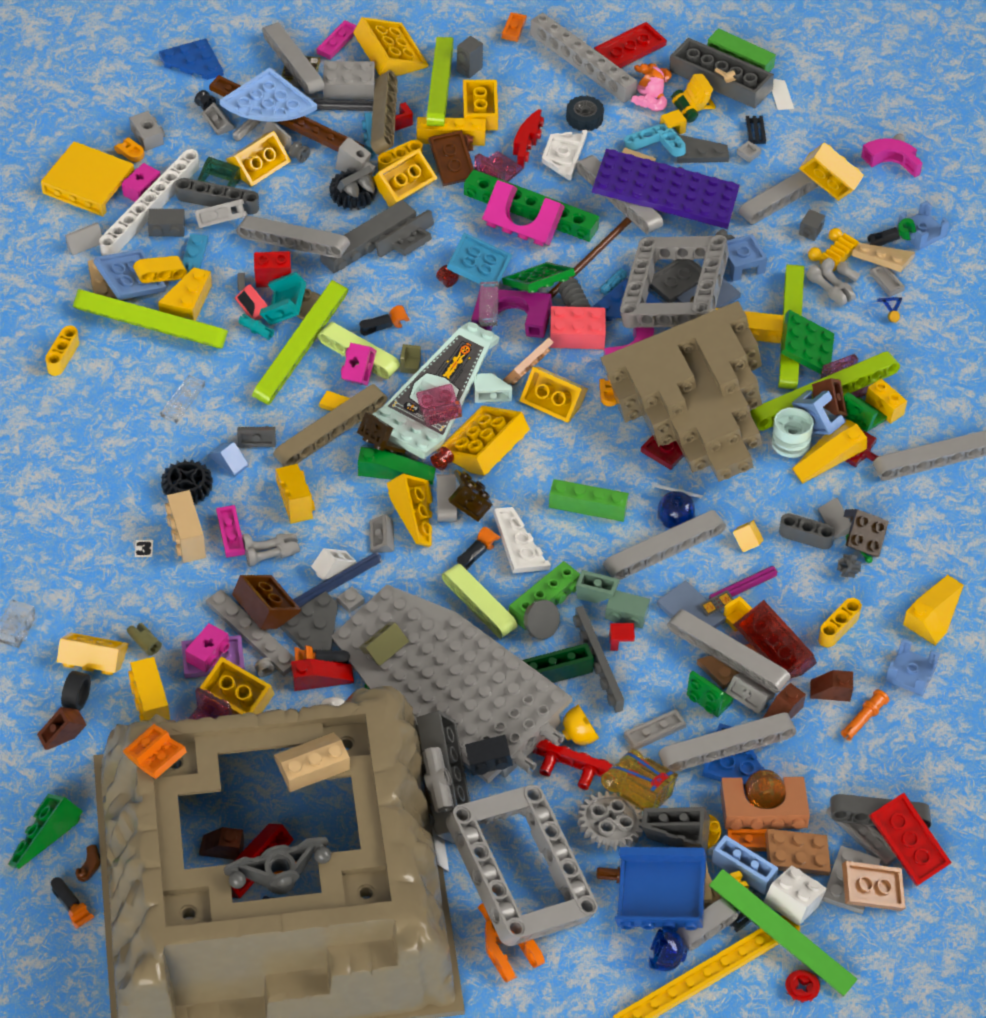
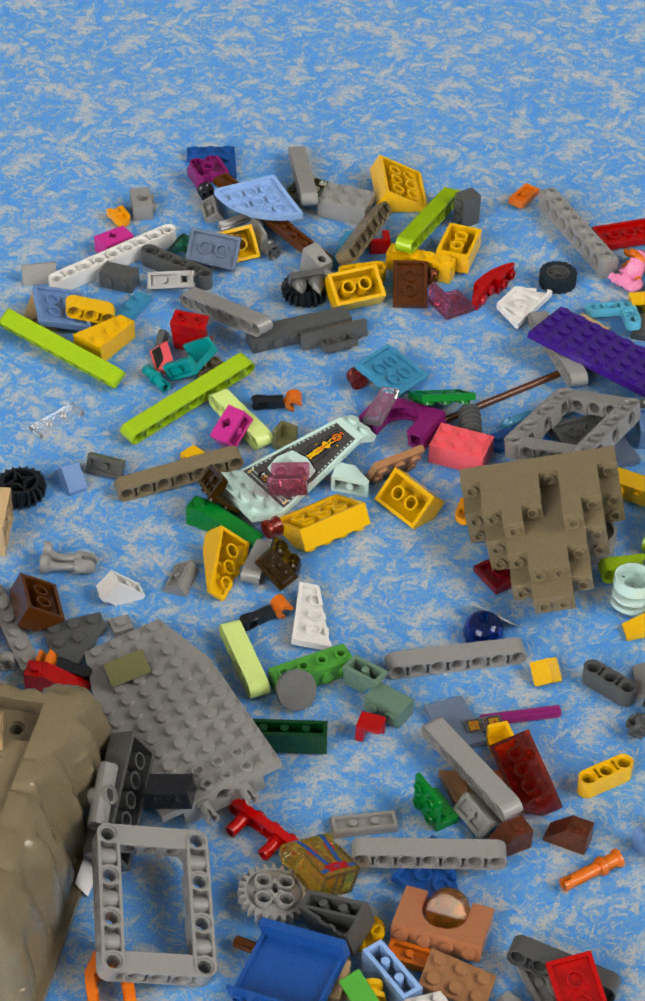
camera: 20 degrees right, 10 degrees down
(86, 178) = (65, 227): yellow panel -> none
(194, 75) = (205, 170): none -> magenta slope
(230, 531) = (39, 532): dark pink plate -> none
(247, 168) = (213, 249): none -> sand blue tile
(295, 493) = (115, 521): yellow wedge -> none
(336, 40) = (351, 172): dark pink plate -> none
(339, 579) = (119, 605): dark blue axle -> none
(357, 105) = (329, 222): black axle -> none
(528, 204) = (468, 339): green brick -> none
(540, 230) = (466, 358): dark pink arch -> none
(578, 727) = (283, 797): yellow cylinder -> none
(588, 500) = (397, 598): bright green brick -> none
(600, 663) = (335, 748): dark grey plate -> none

